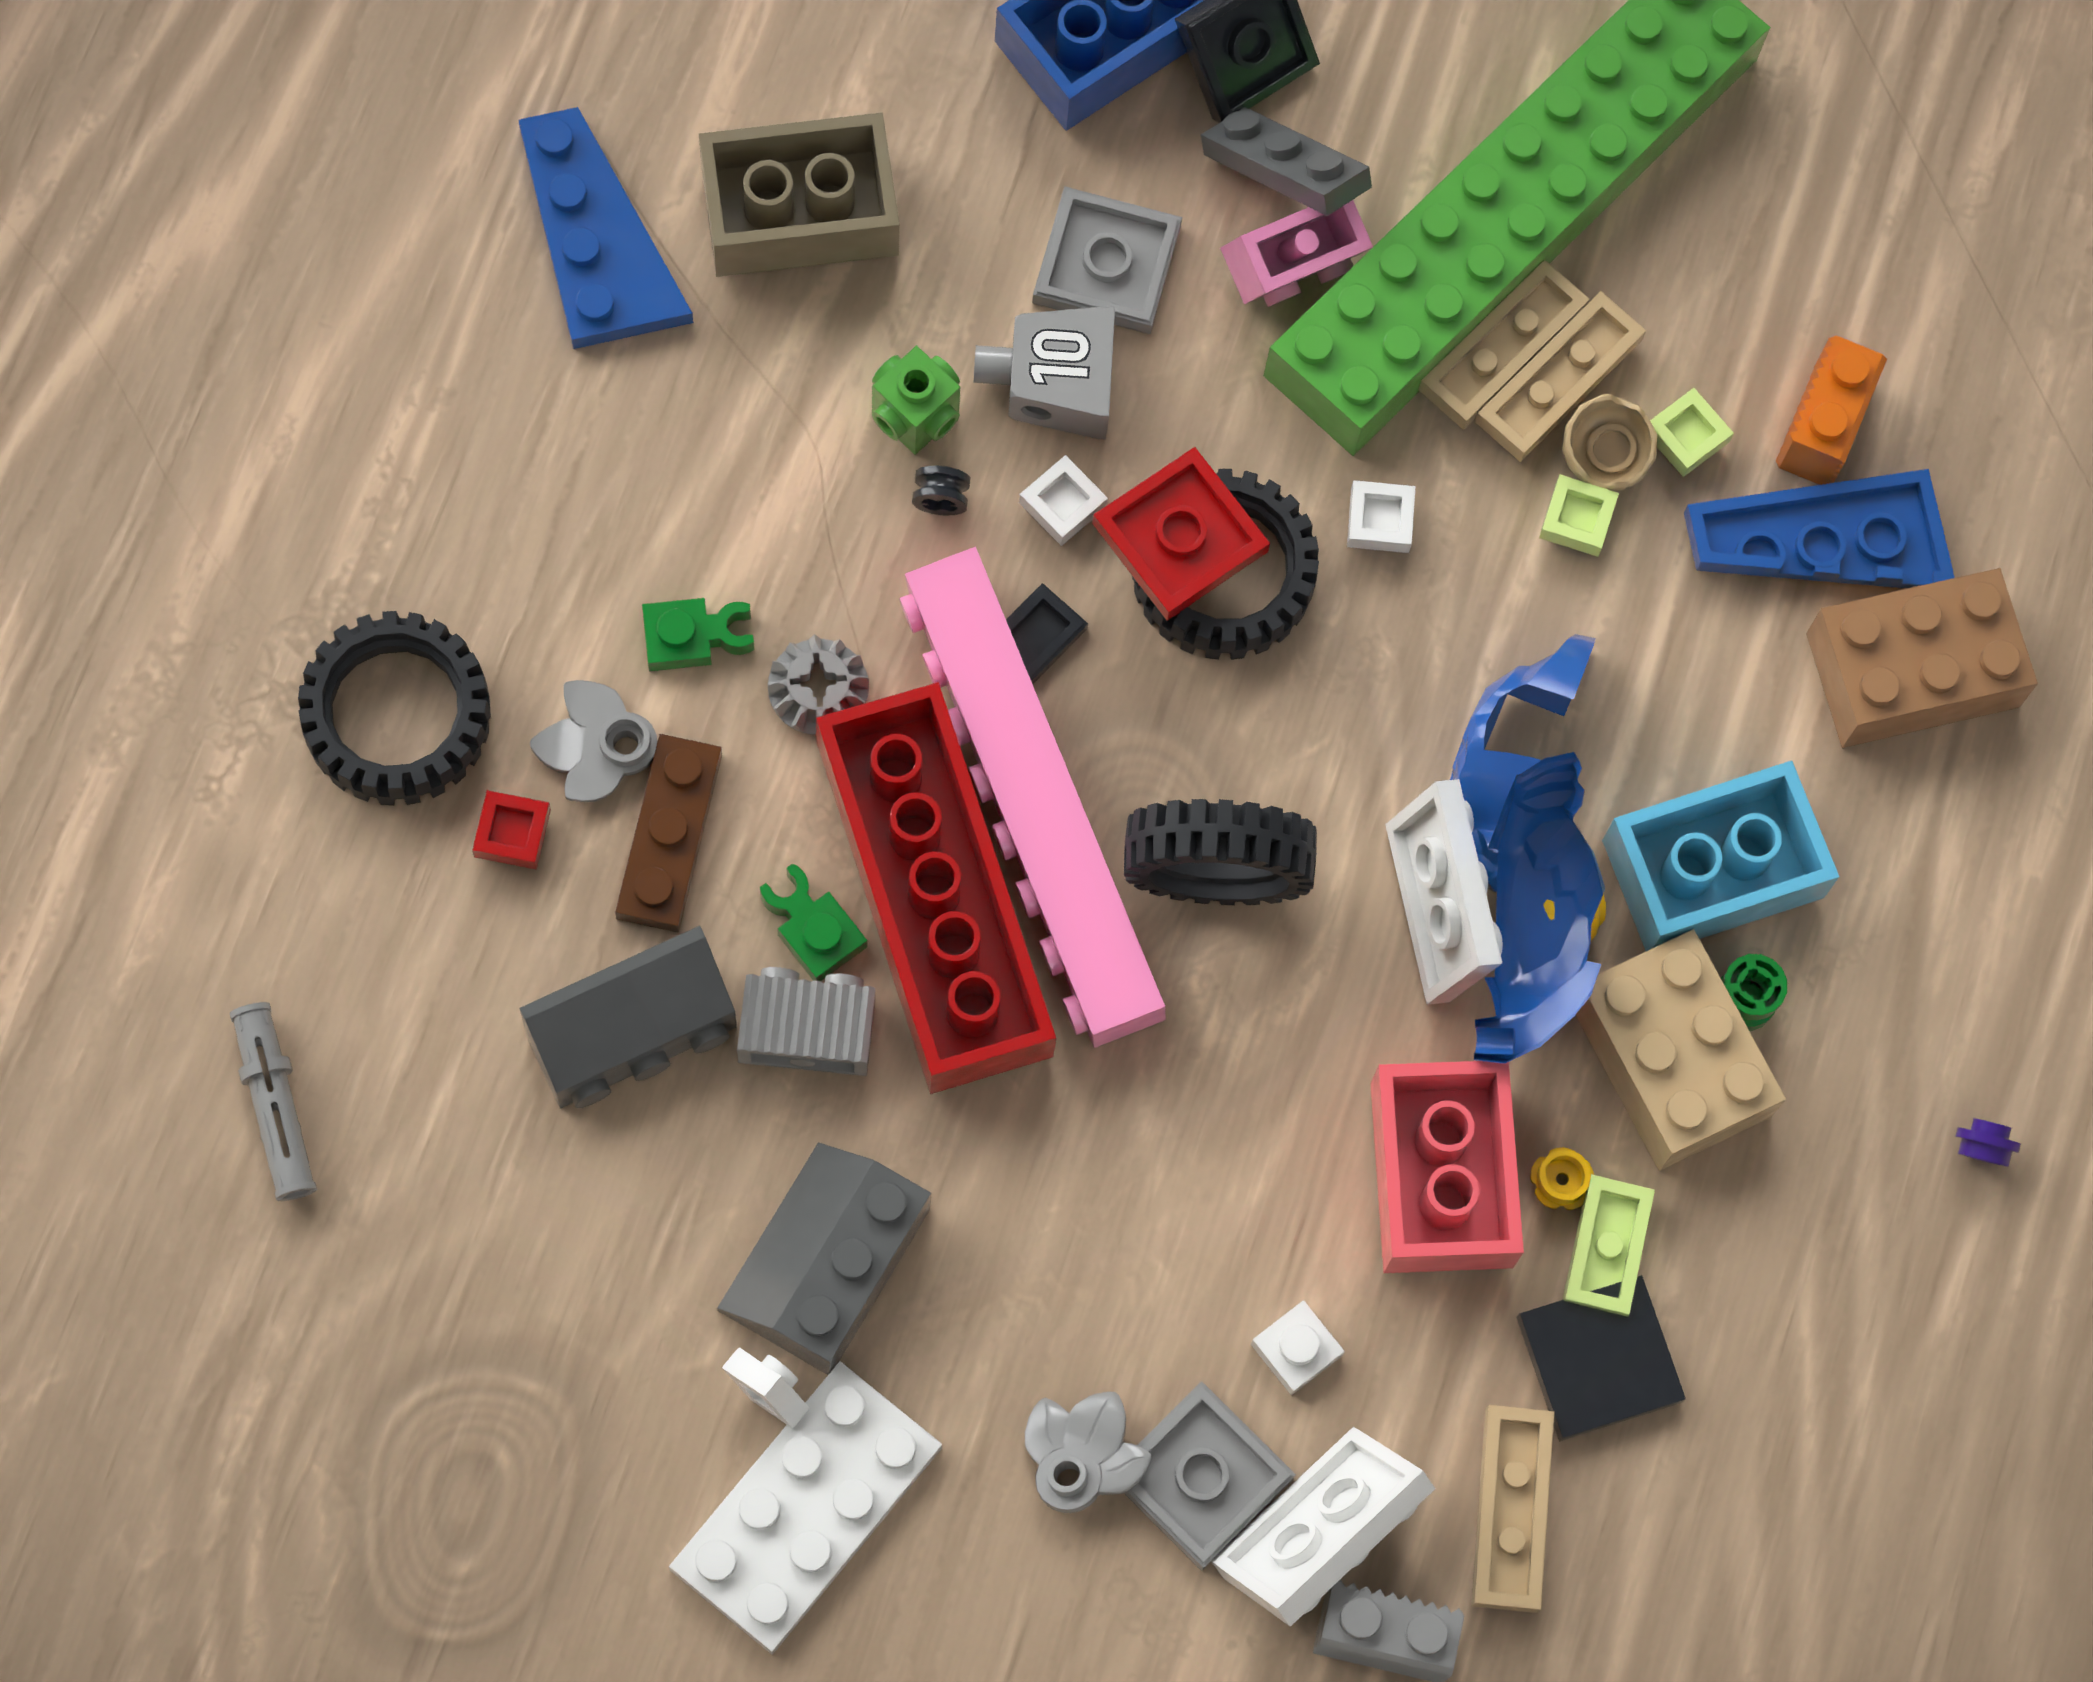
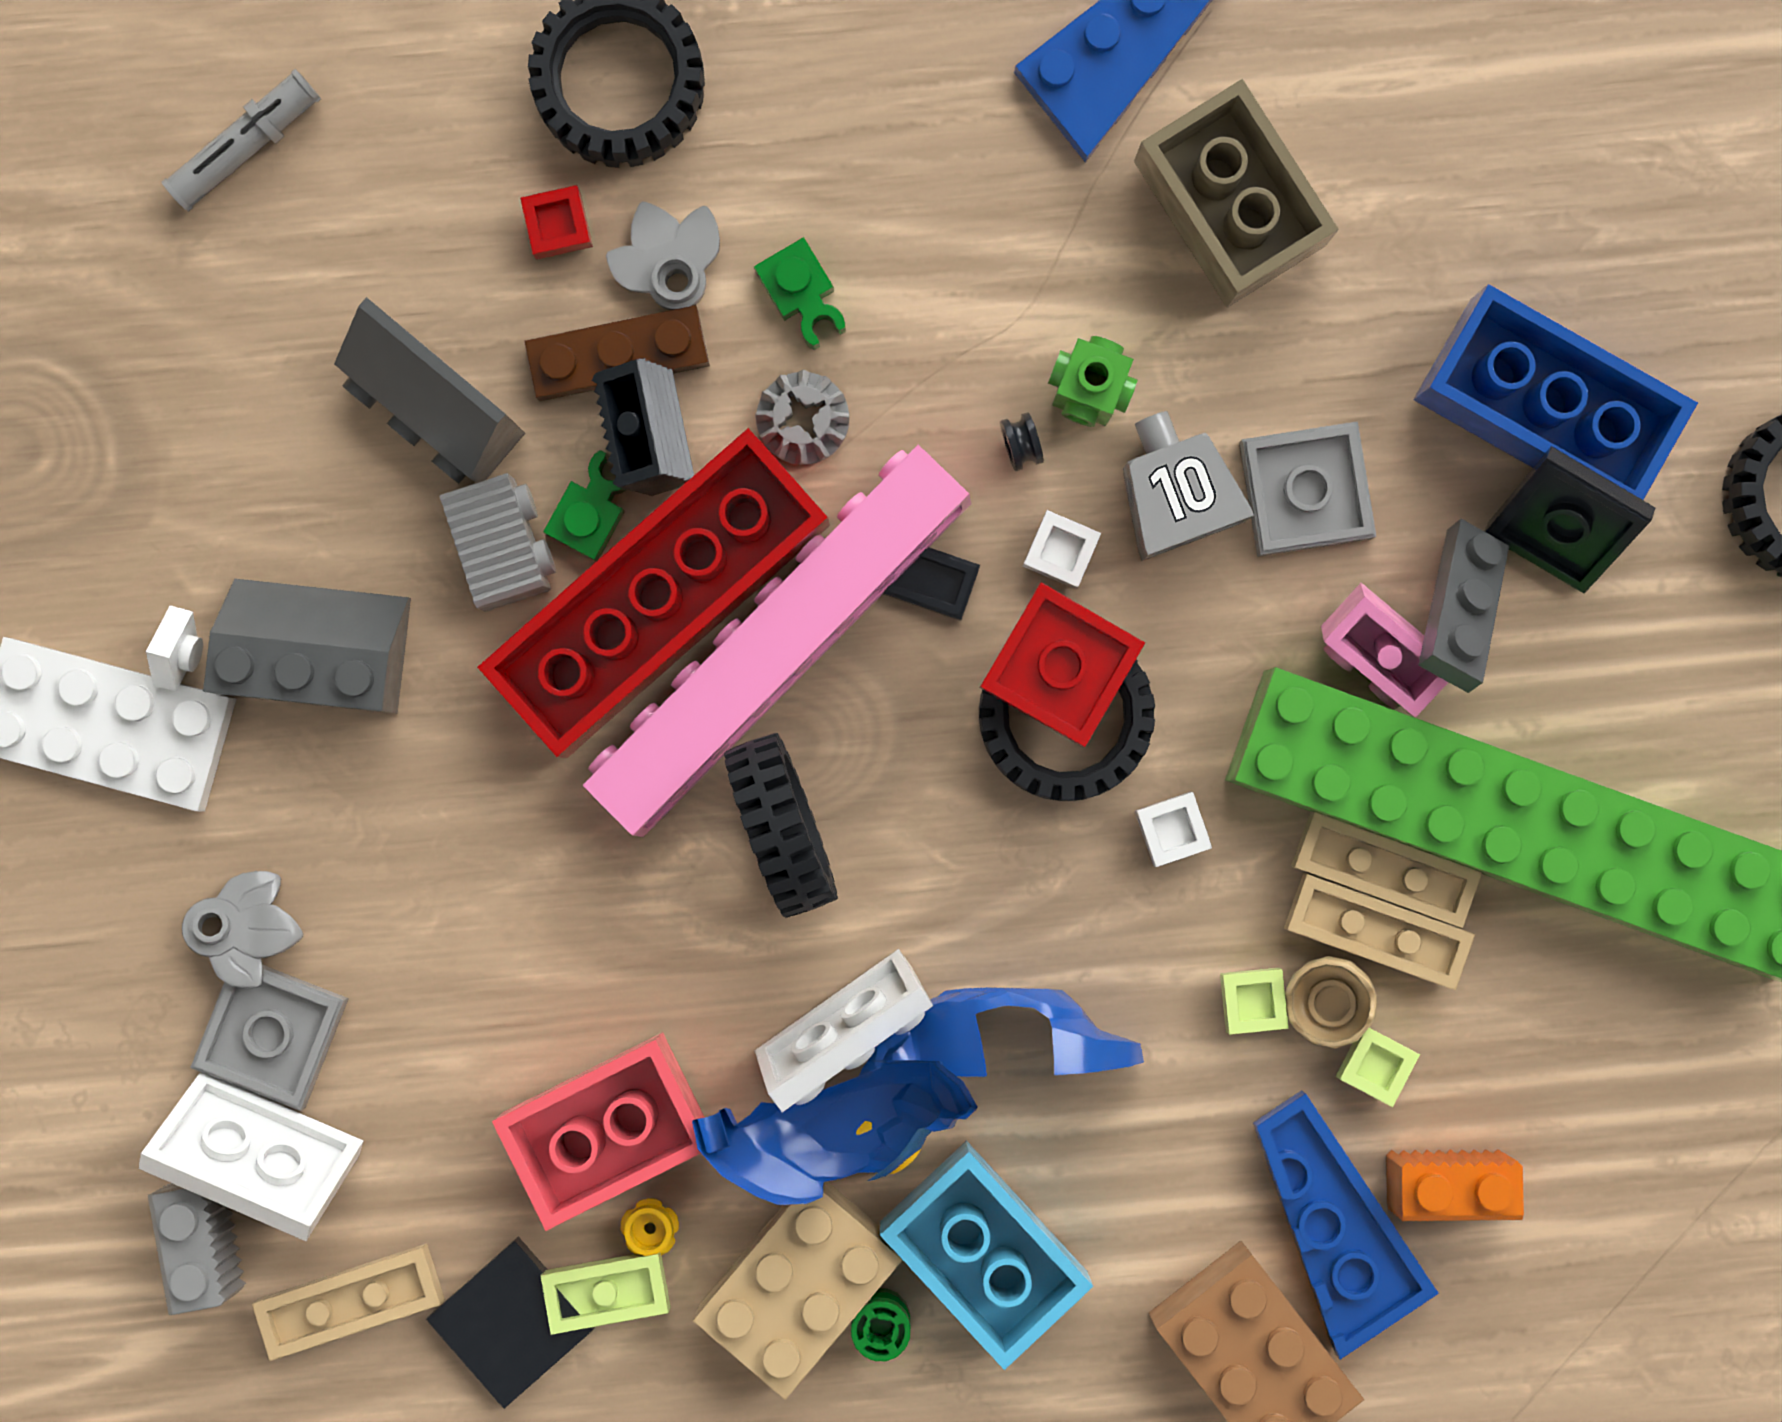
camera: 75 degrees right, 15 degrees up
(763, 826) = (643, 427): none -> black brick
(1297, 1347) = (409, 1066): white plate -> none

